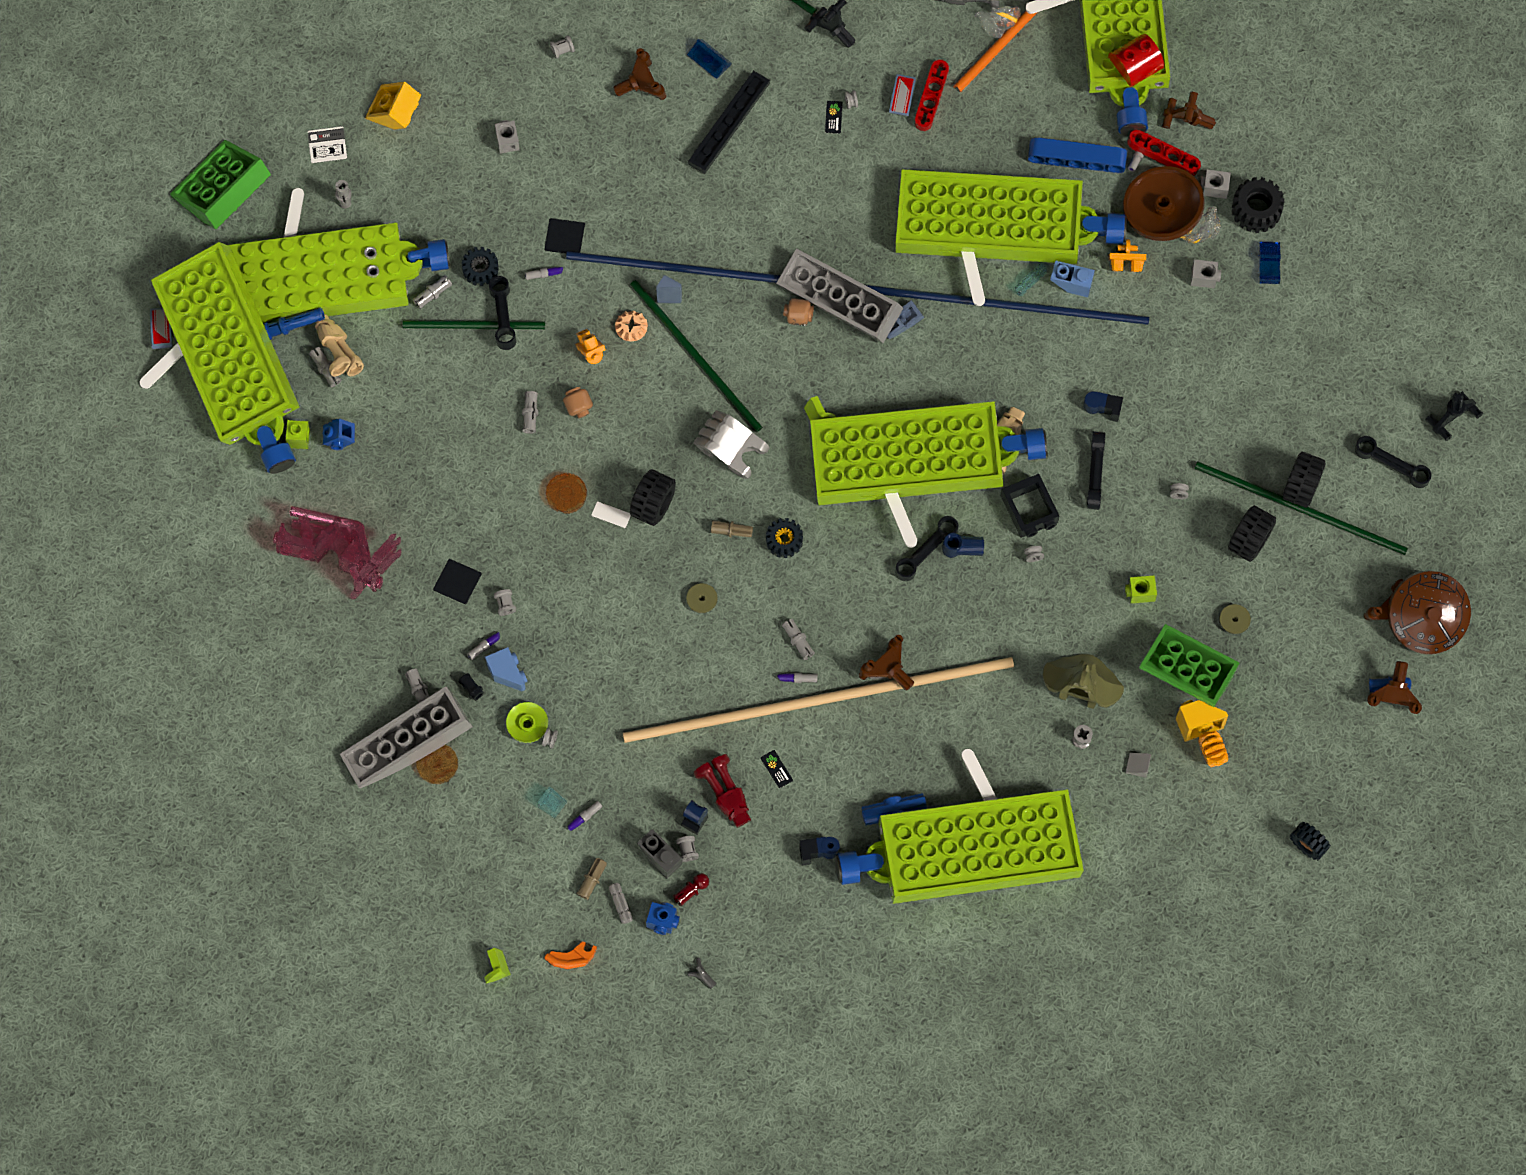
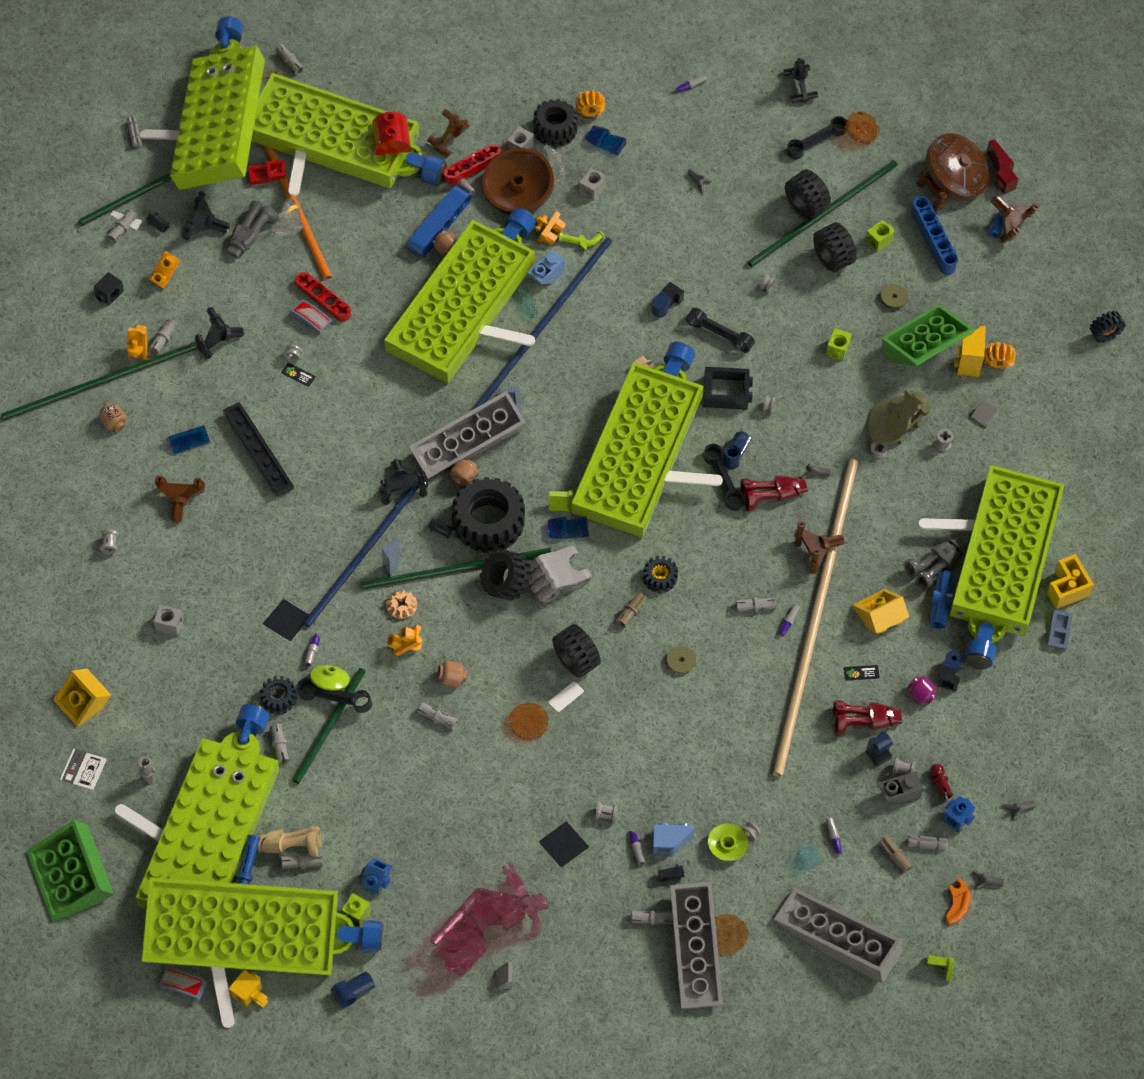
camera: 65 degrees left, 10 degrees down
(179, 382) = (247, 988): none -> yellow brick
(218, 465) = (348, 991): none -> dark blue piece
(298, 591) = (504, 976): none -> light grey slope
(480, 861) = (840, 935): none -> light grey slope
(515, 305) = (329, 677): none -> lime dish
(608, 975) = (988, 880): none -> dark grey bar
(701, 398) = (517, 577): none -> black tyre
(730, 320) = (440, 527): none -> black pin
(759, 260) = (401, 480): none -> black axle
(762, 378) = (488, 535): none -> black tyre
(781, 830) = (921, 690): none -> magenta head
(792, 433) = (573, 528): none -> clear blue slope
(850, 757) = (881, 610): none -> yellow slope
(922, 936) = (1060, 629): none -> sand blue slope
(944, 608) = (783, 489): none -> dark red piece
(949, 791) = (944, 554): none -> dark grey piece
(972, 926) = (1072, 583): none -> yellow brick
(982, 631) = (816, 471): none -> dark grey bar
(1038, 686) = (878, 455): none -> light grey bush
(1053, 170) = (444, 242): none -> medium nougat head
(1132, 295) = (584, 243): none -> lime piece
(1274, 371) = (699, 178): none -> dark grey bar
(1299, 565) = (880, 235): none -> lime brick
(1300, 226) = (590, 103): none -> light orange gear
(1325, 633) = (934, 235): none -> blue beam
(1391, 312) = (692, 83): none -> piece
(1430, 500) = (862, 127): none -> clear orange tile
(1461, 660) = (1005, 177): none -> dark red slope

